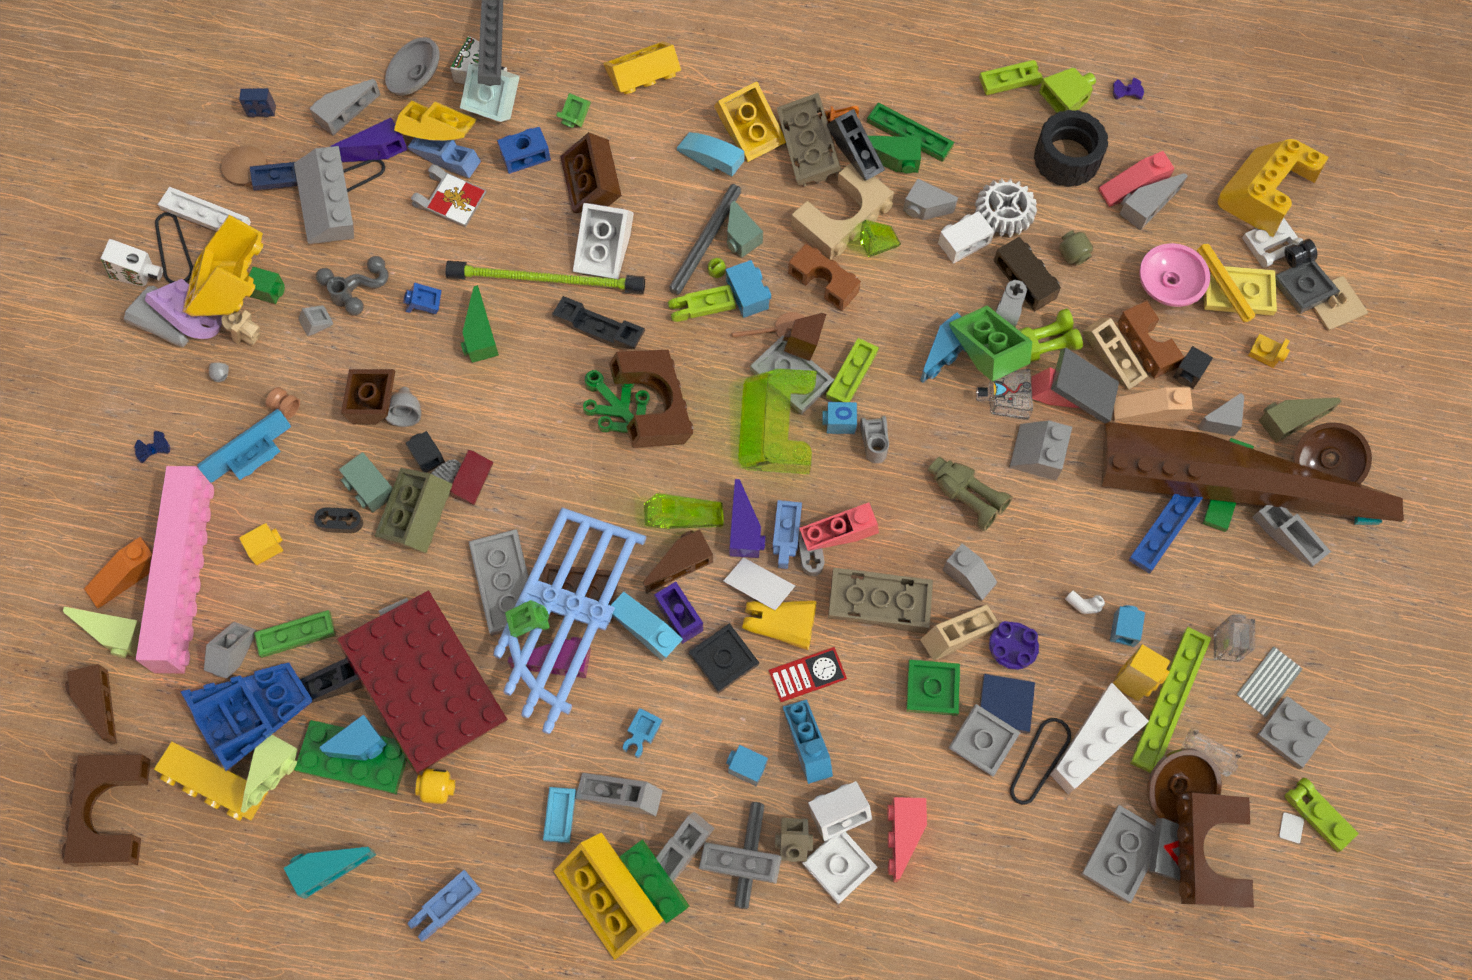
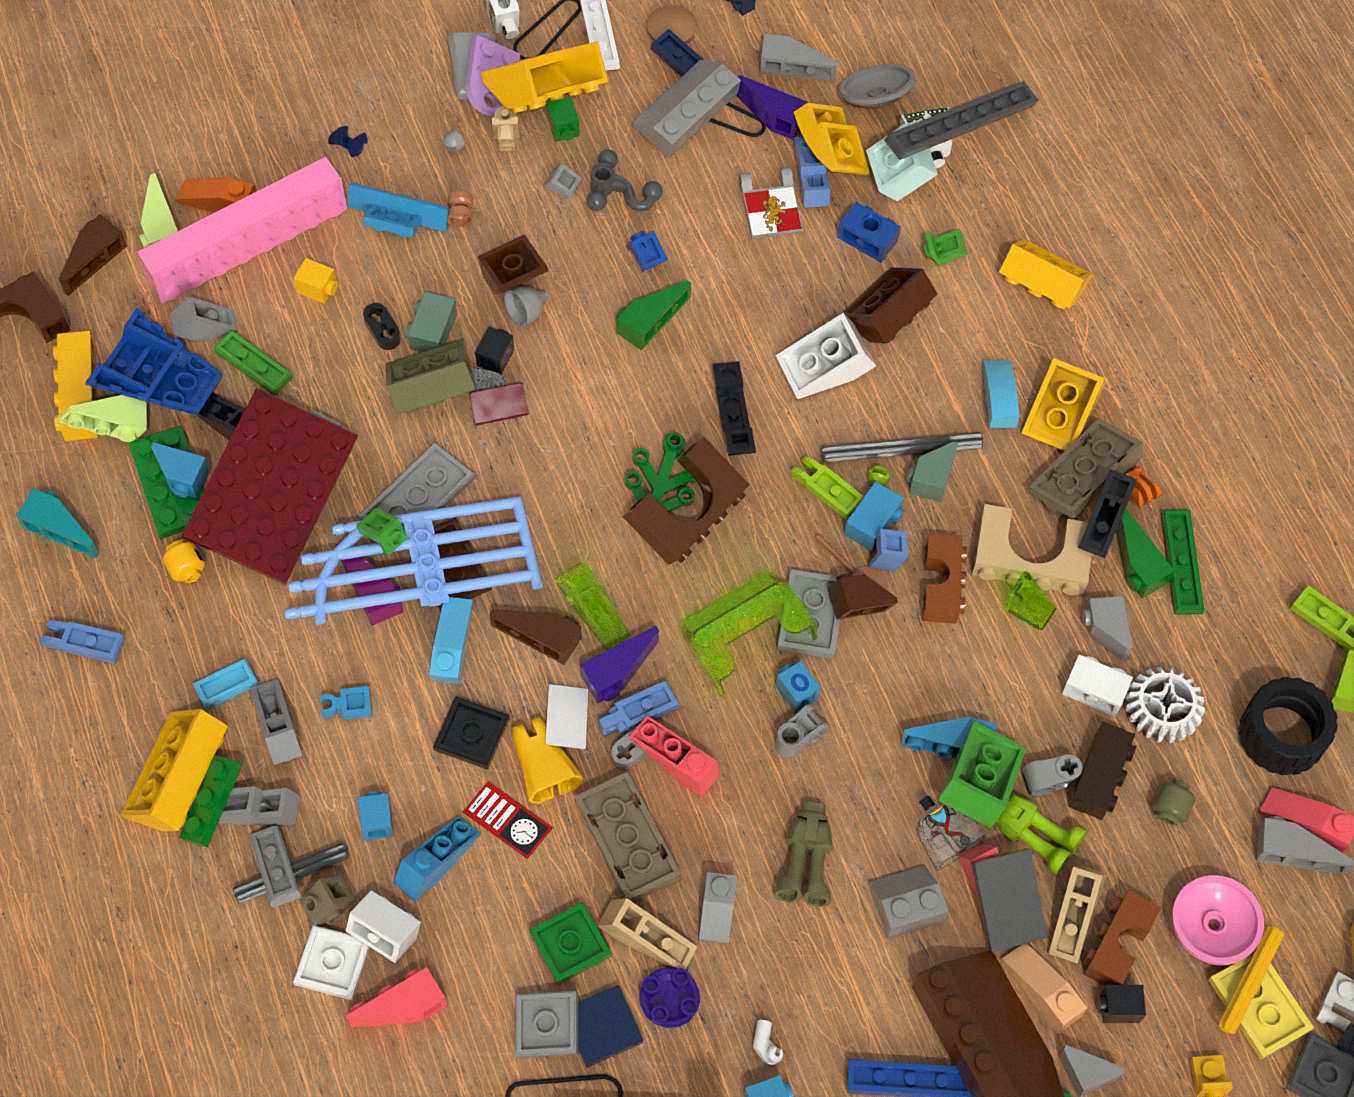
camera: 55 degrees right, 5 degrees down
(460, 270) = (798, 411): lime hose -> none
(679, 612) = (484, 661): dark purple brick -> none
(784, 292) = (890, 550): none -> medium blue panel
(852, 371) = (857, 668): lime plate -> none

